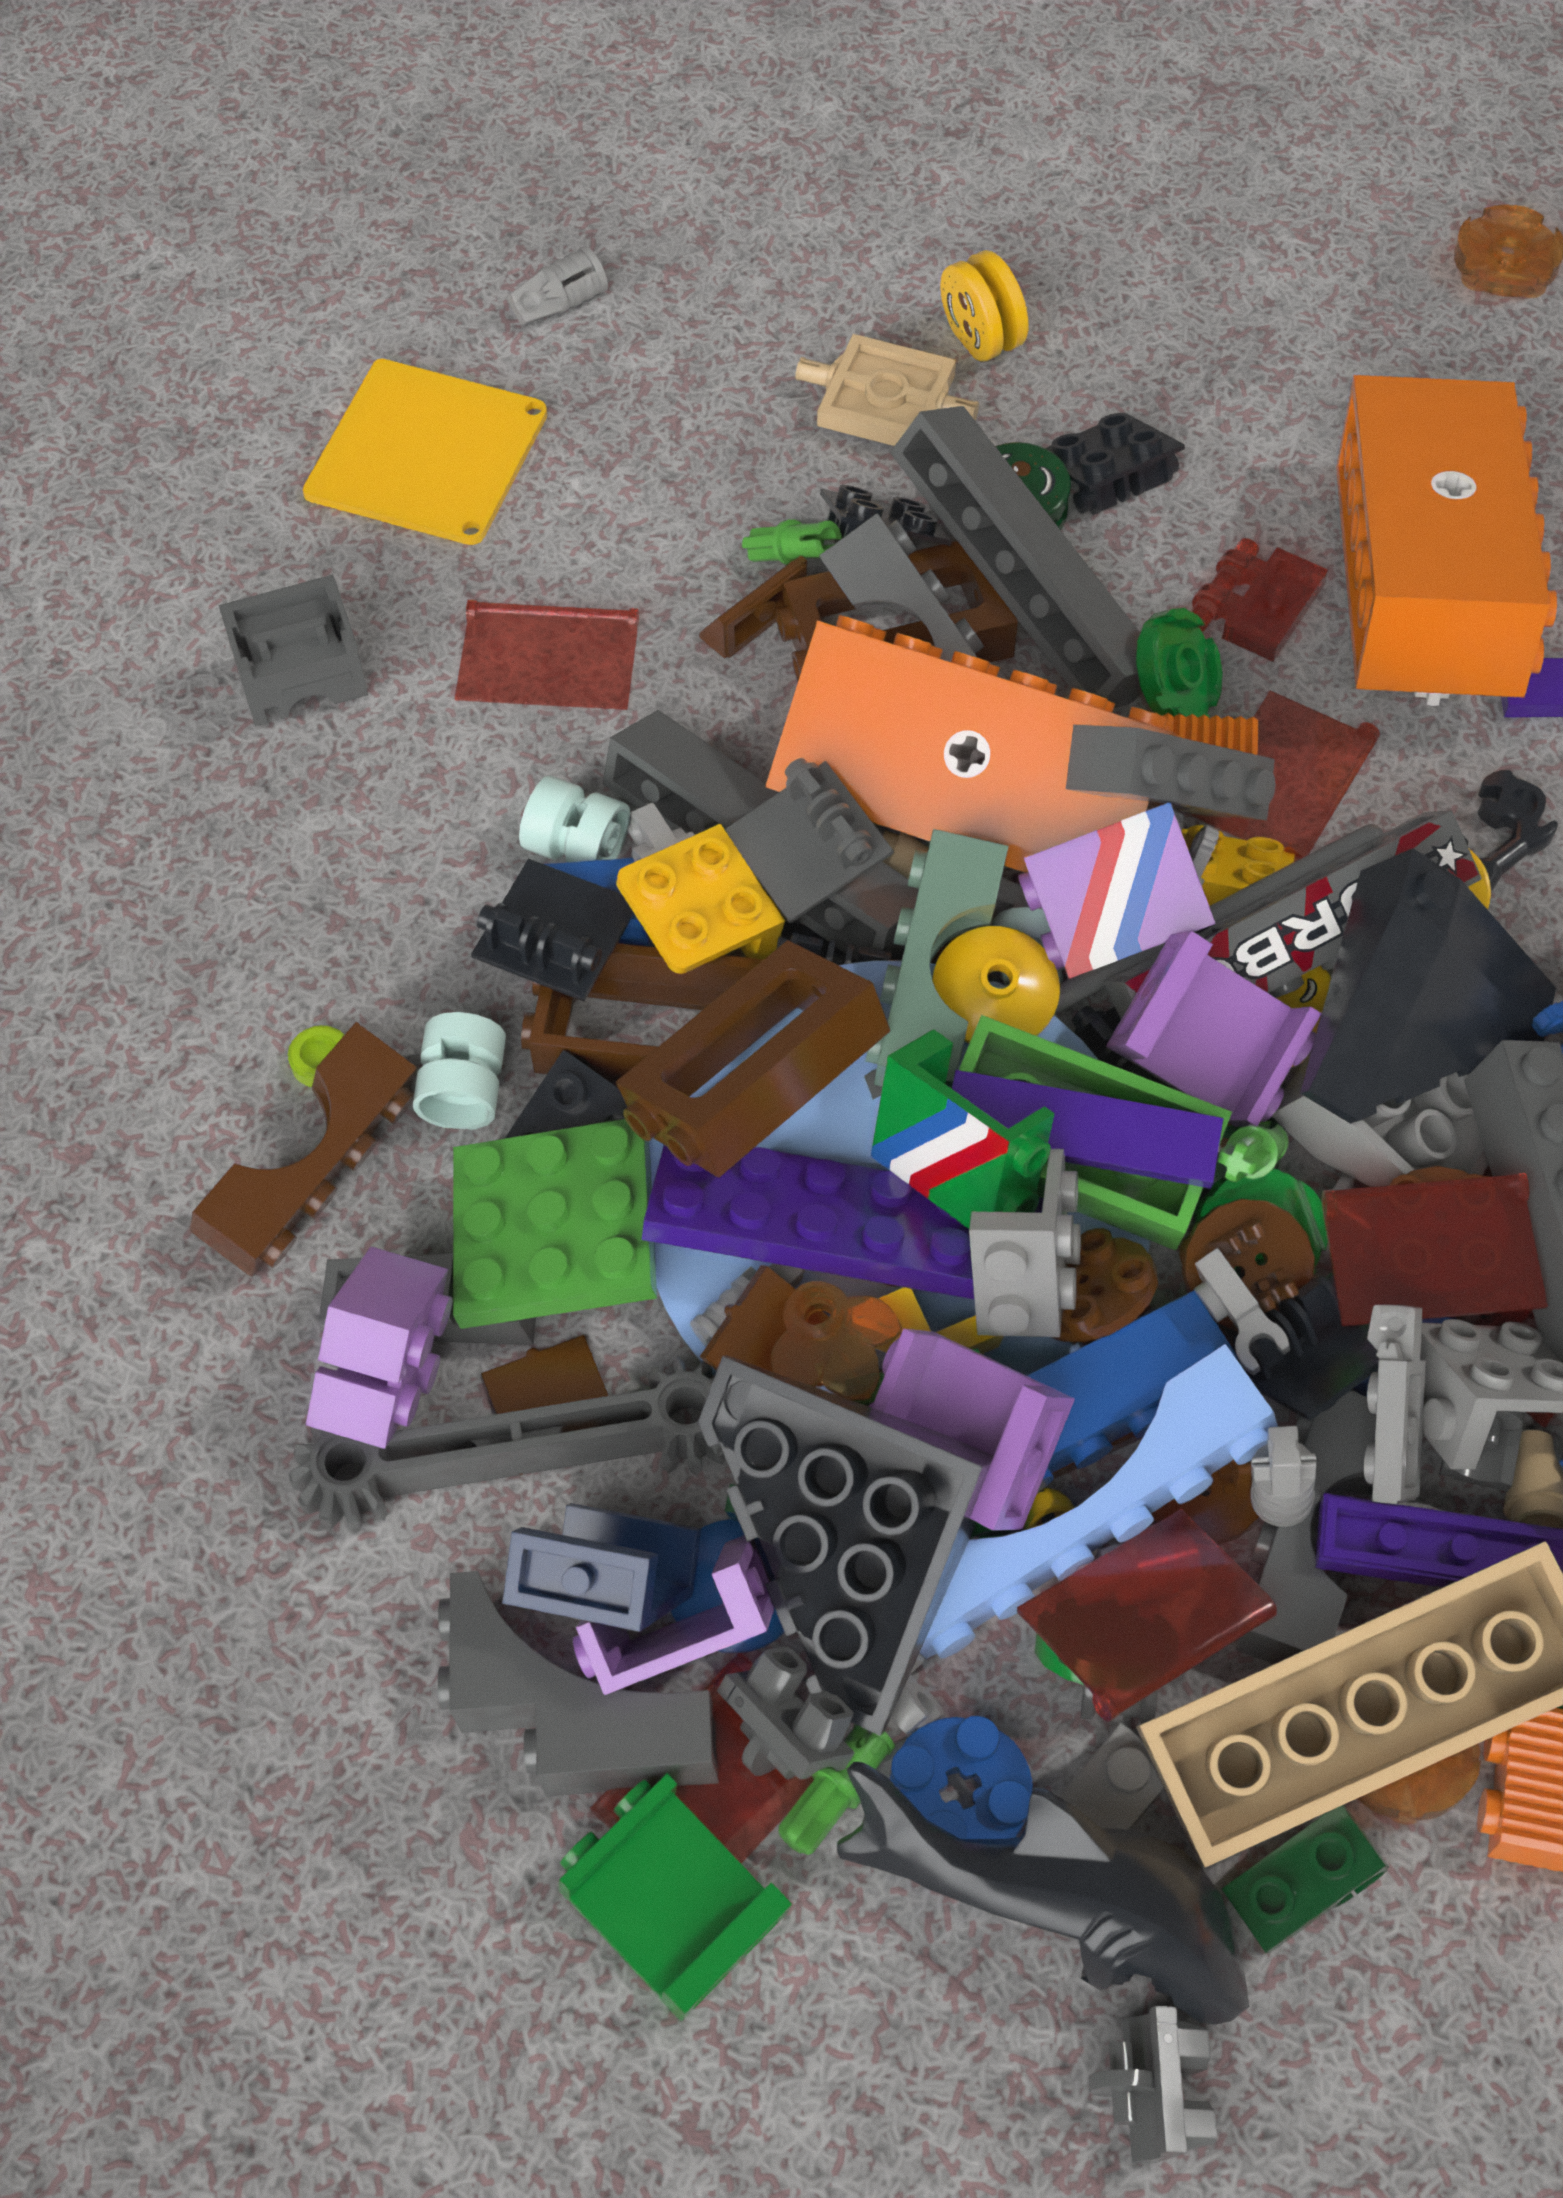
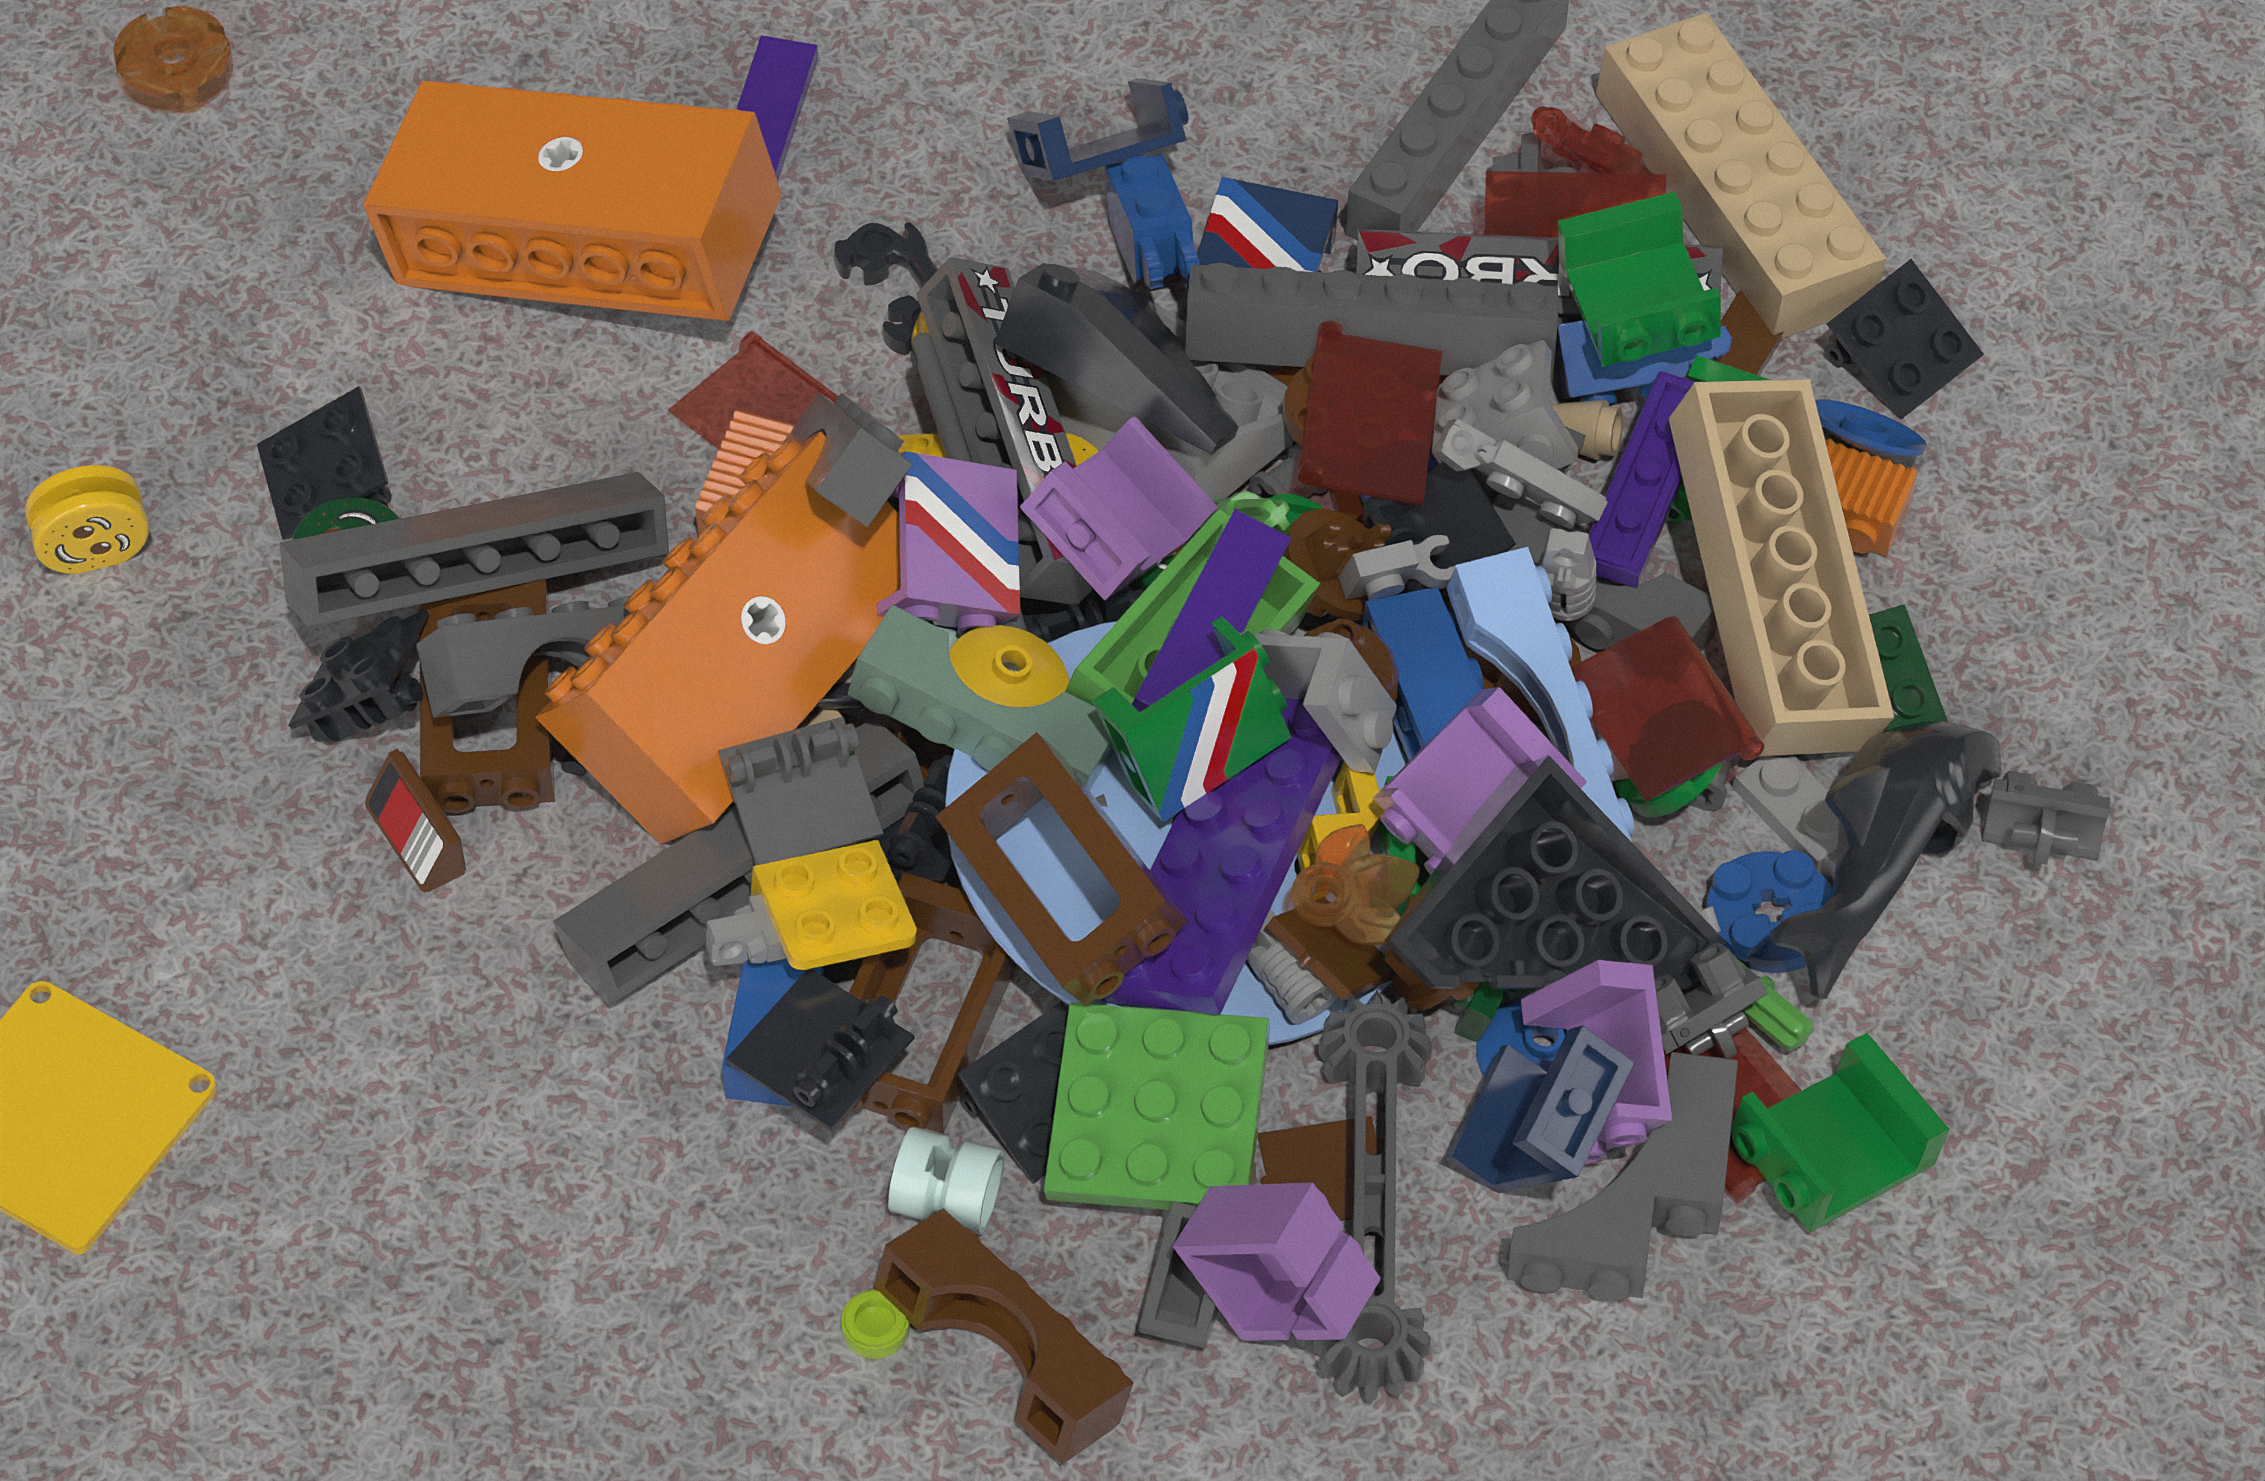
camera: 80 degrees left, 5 degrees down
(294, 647) = (352, 1259): dark grey piece -> none
(547, 655) = (405, 1039): clear red piece -> none
(568, 824) = (674, 1025): light aqua wheel -> none
(790, 540) = (357, 765): bright green axle -> none
(881, 388) = (158, 645): tan plate -> none
(1178, 665) = (644, 460): green tile -> none
(1271, 606) = (571, 373): clear red plate -> none

